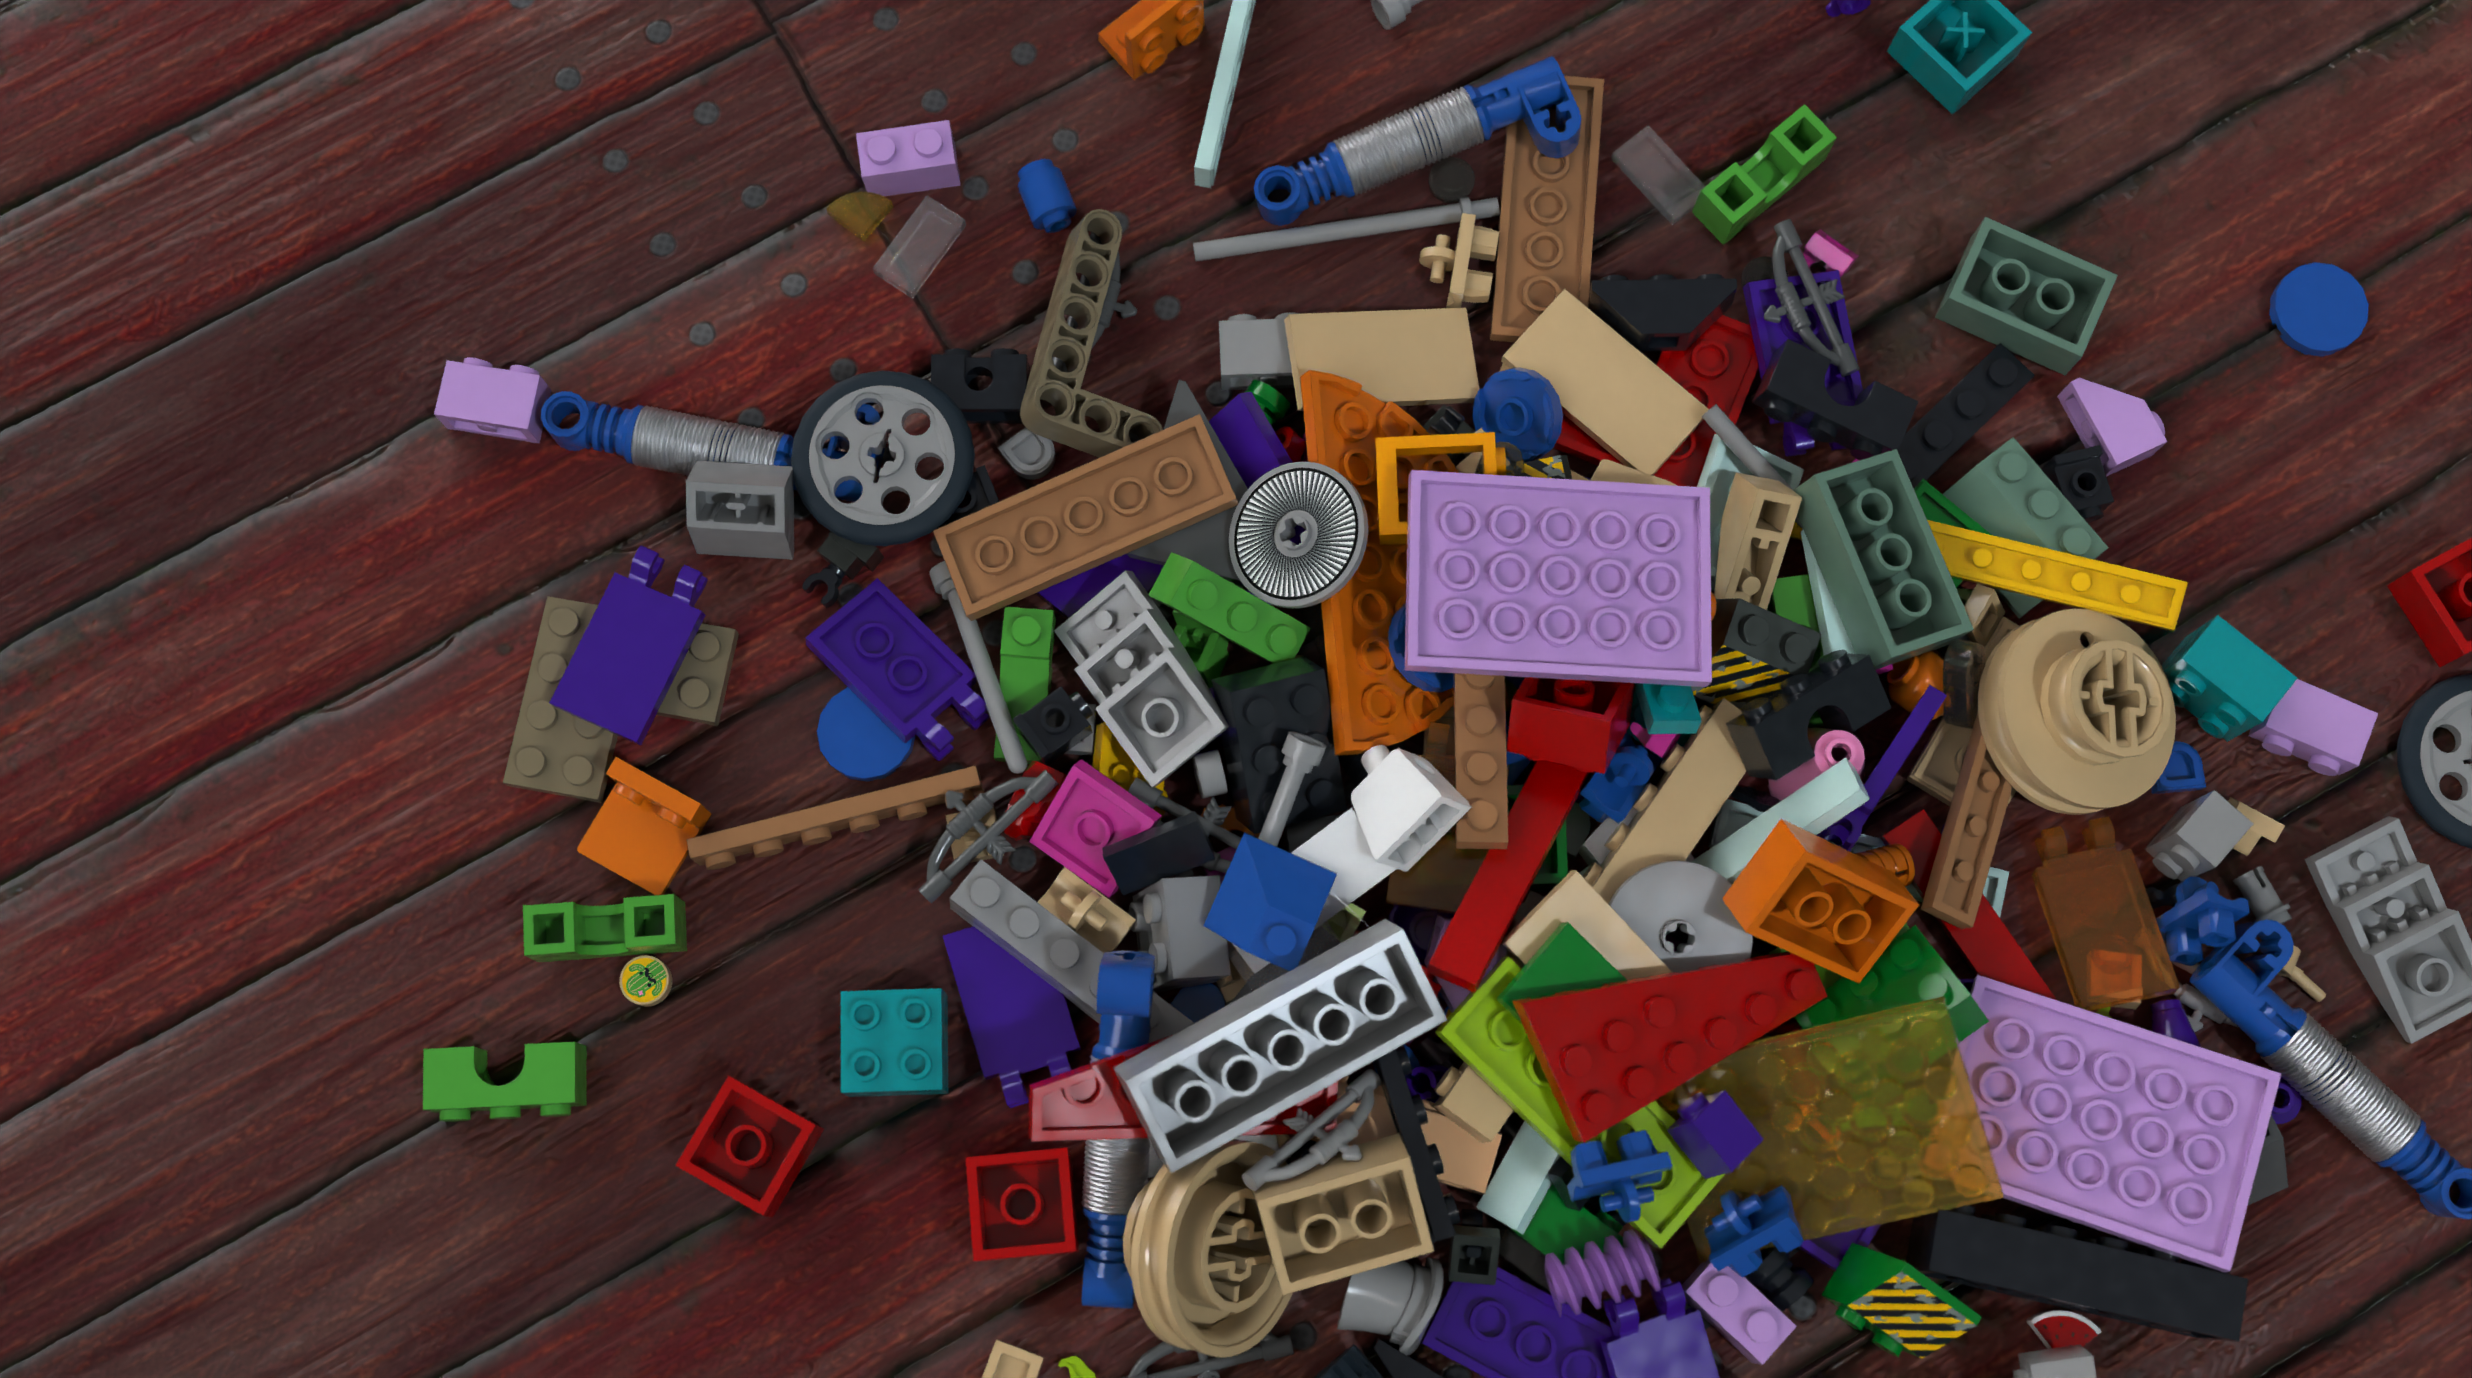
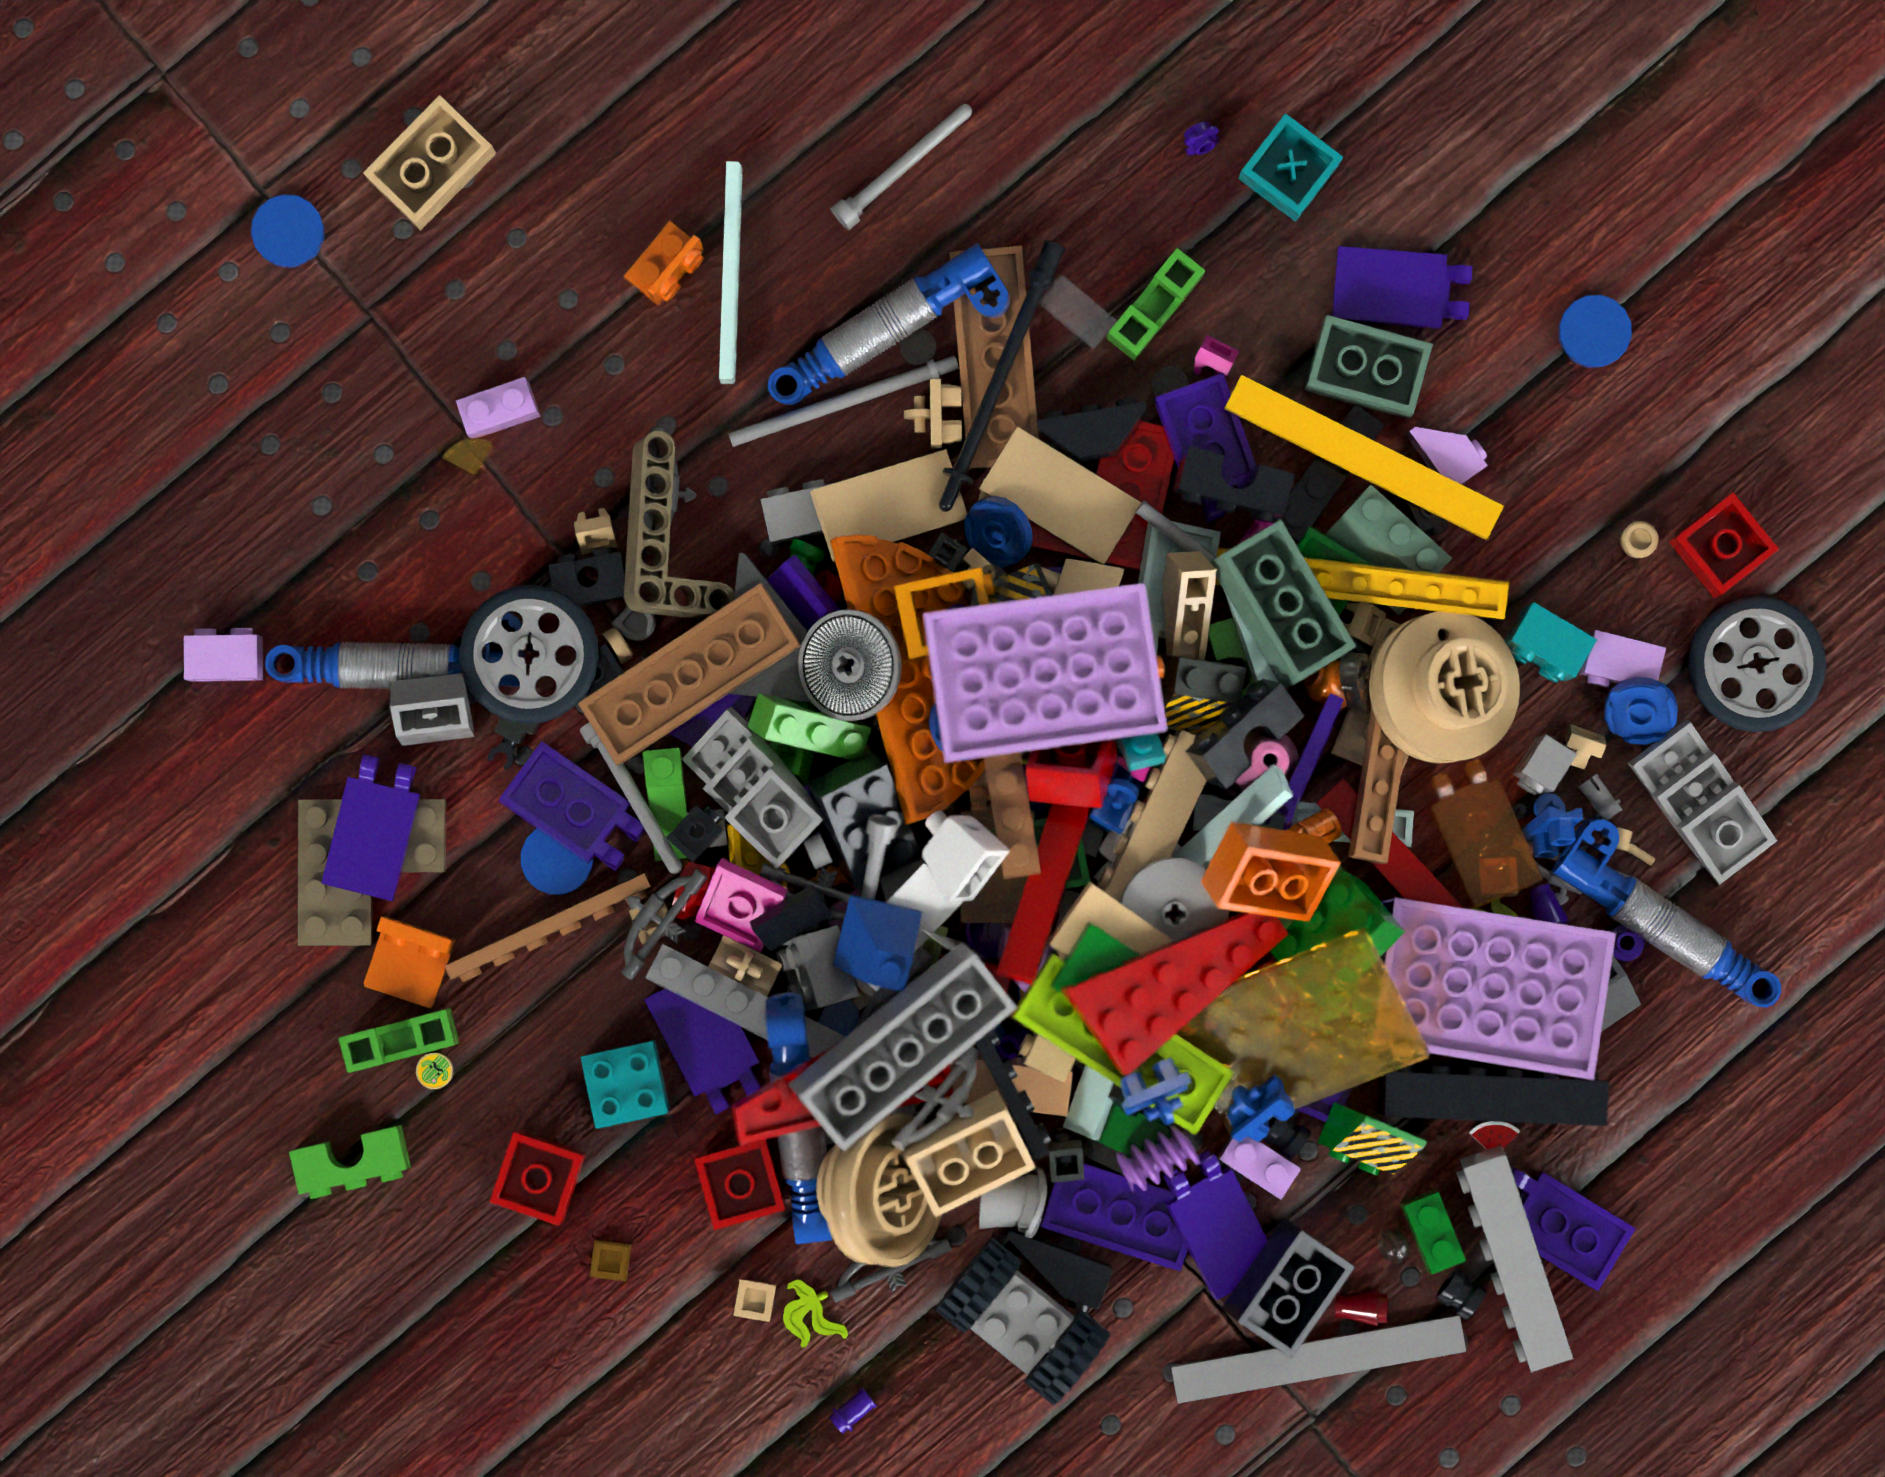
camera: 10 degrees left, 10 degrees up
(826, 1282) = (610, 1260): none -> pearl gold tile
(919, 246) = (519, 473): clear tile -> none
(999, 329) = (595, 532): none -> tan tile
(1000, 474) = (618, 645): none -> tan tile
(1046, 196) = (609, 418): blue brick -> none
(1622, 120) = (1040, 280): none -> black bar
(1714, 1133) = (1219, 1049): dark purple brick -> none
(1789, 242) = (1210, 399): dark grey piece -> none
(2010, 403) = (1364, 457): none -> yellow tile
(2078, 210) = (1397, 287): none -> dark purple tile
(2182, 772) = (1530, 711): blue tile -> none
(2333, 791) = (1640, 710): none -> blue tile
(2348, 577) = (1639, 539): none -> tan tile

